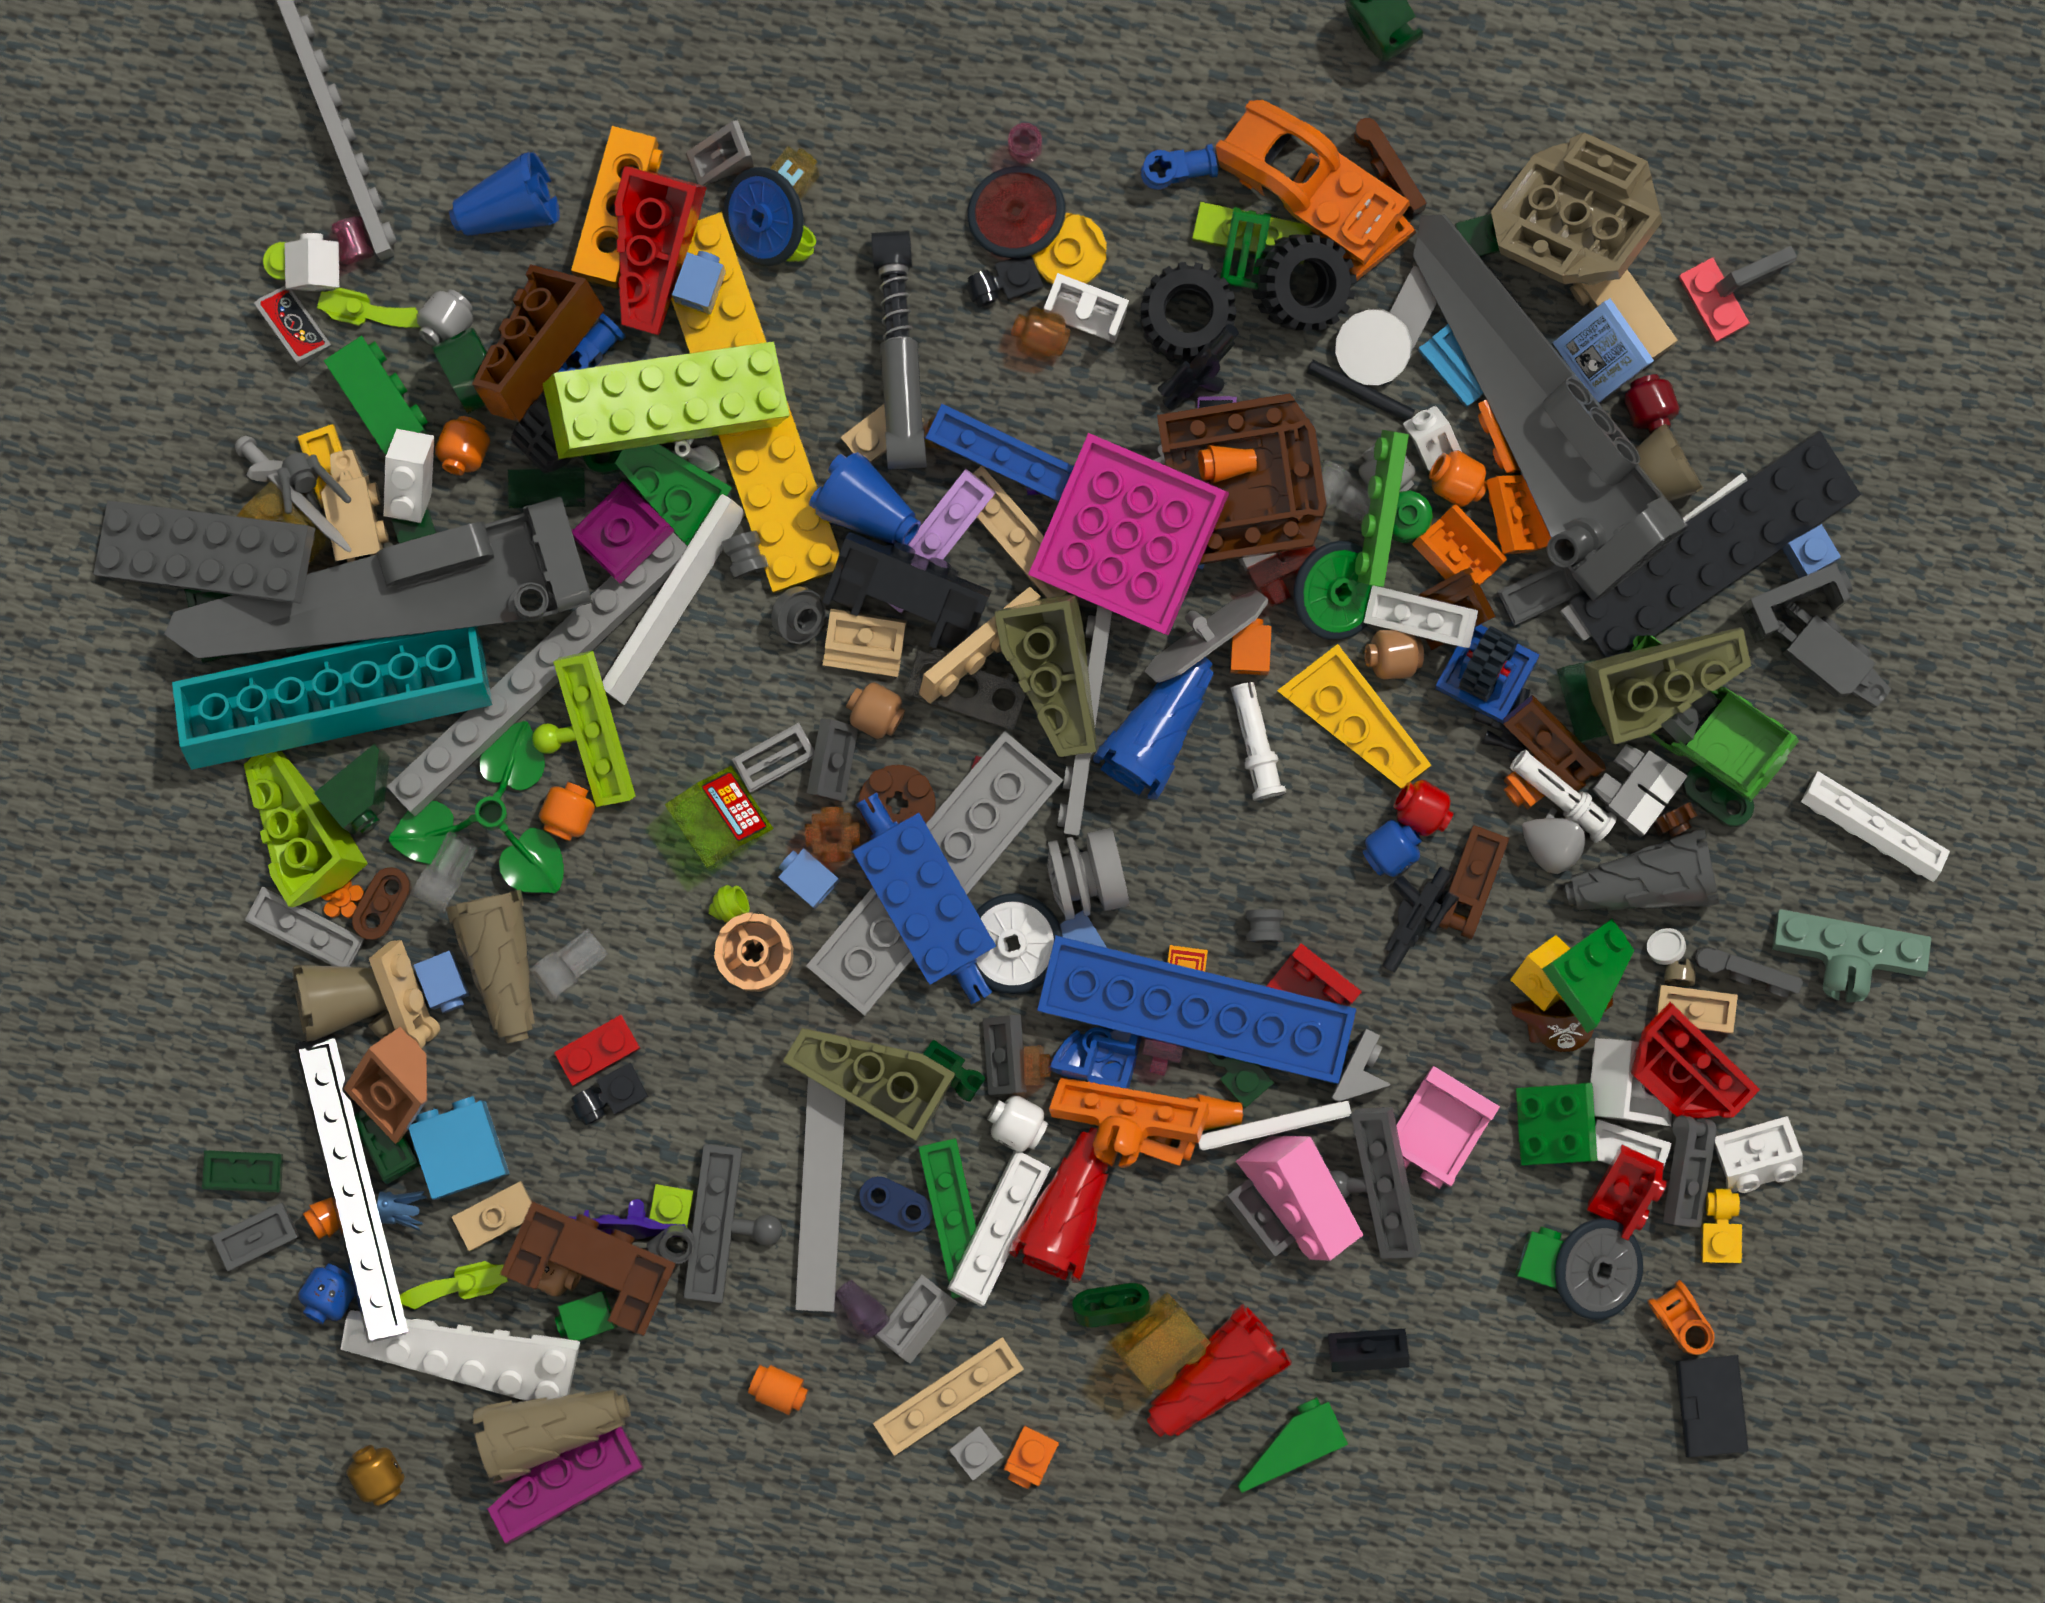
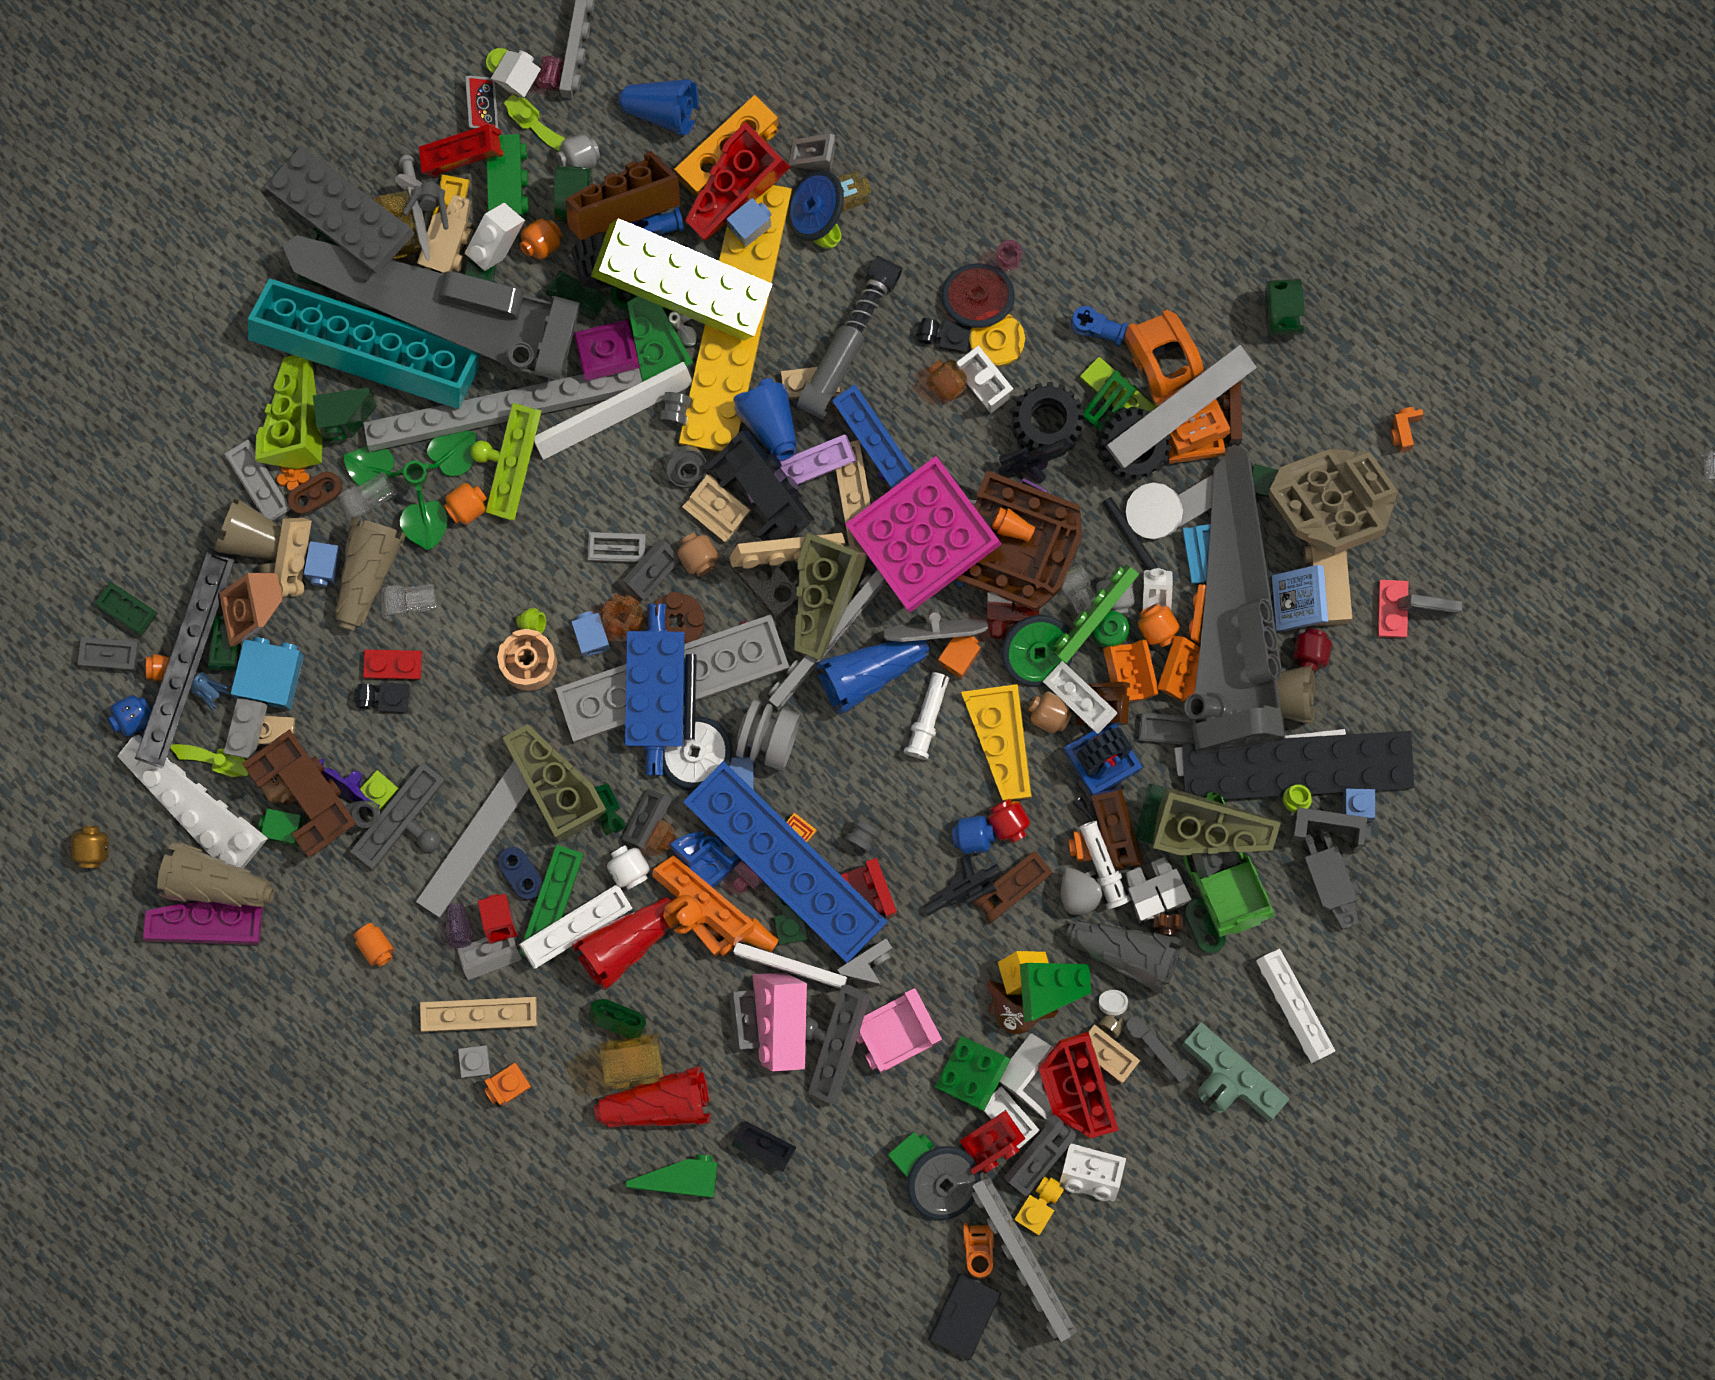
camera: 30 degrees right, 5 degrees down
(303, 396) = (460, 150): none -> red container
(473, 1228) = (245, 728): none -> light grey plate
(719, 817) = (557, 563): clear neon green slope -> none
(902, 1272) = (497, 918): none -> red brick
(970, 883) = (690, 696): none -> black bar
(1338, 208) = (1181, 406): none -> light grey tile
(1604, 88) = (1401, 433): none -> orange bracket
(1730, 1295) = (1029, 1270): none -> light grey plate
(1738, 587) = (1296, 797): none -> lime plate

